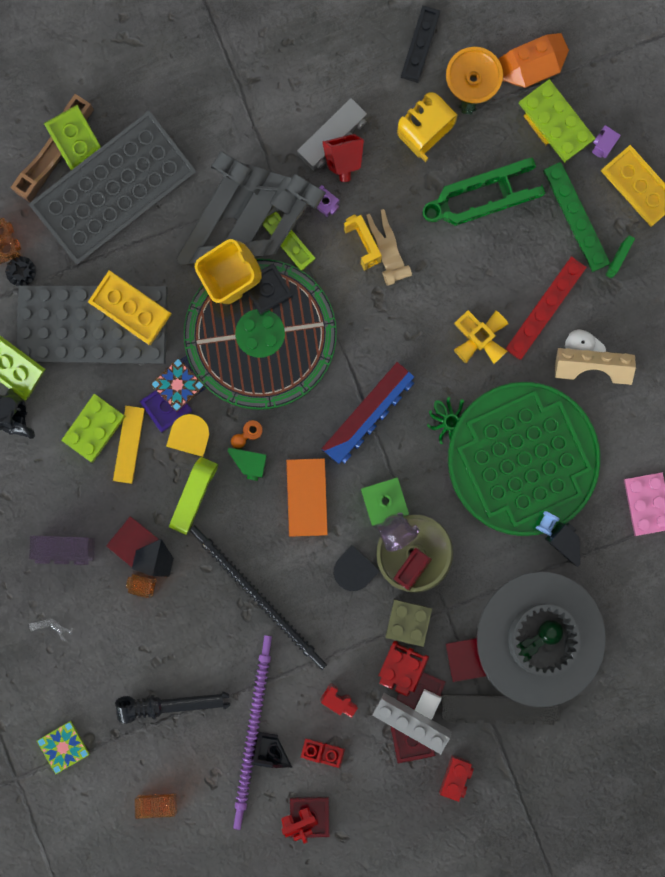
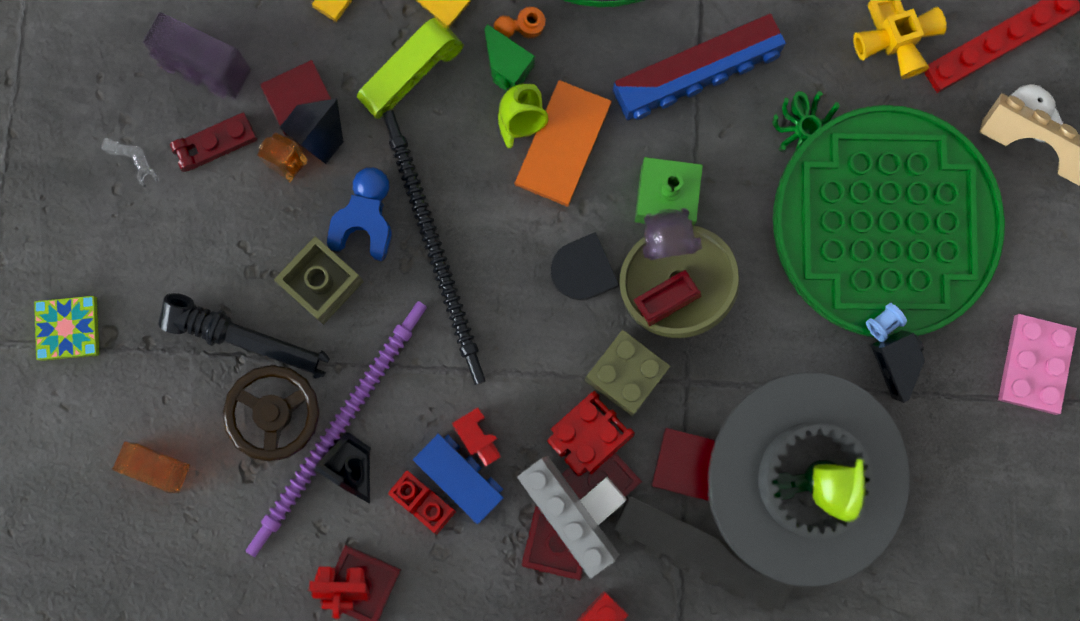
camera: 15 degrees right, 5 degrees down
(95, 593) = (214, 142): none -> dark red plate
(201, 651) = (319, 280): none -> olive brick
(208, 597) = (364, 213): none -> blue piece
(211, 743) = (271, 413): none -> dark brown piece
(273, 492) = (521, 113): none -> lime piece
(338, 729) = (459, 477): none -> blue brick
(560, 641) = (840, 489): none -> lime piece

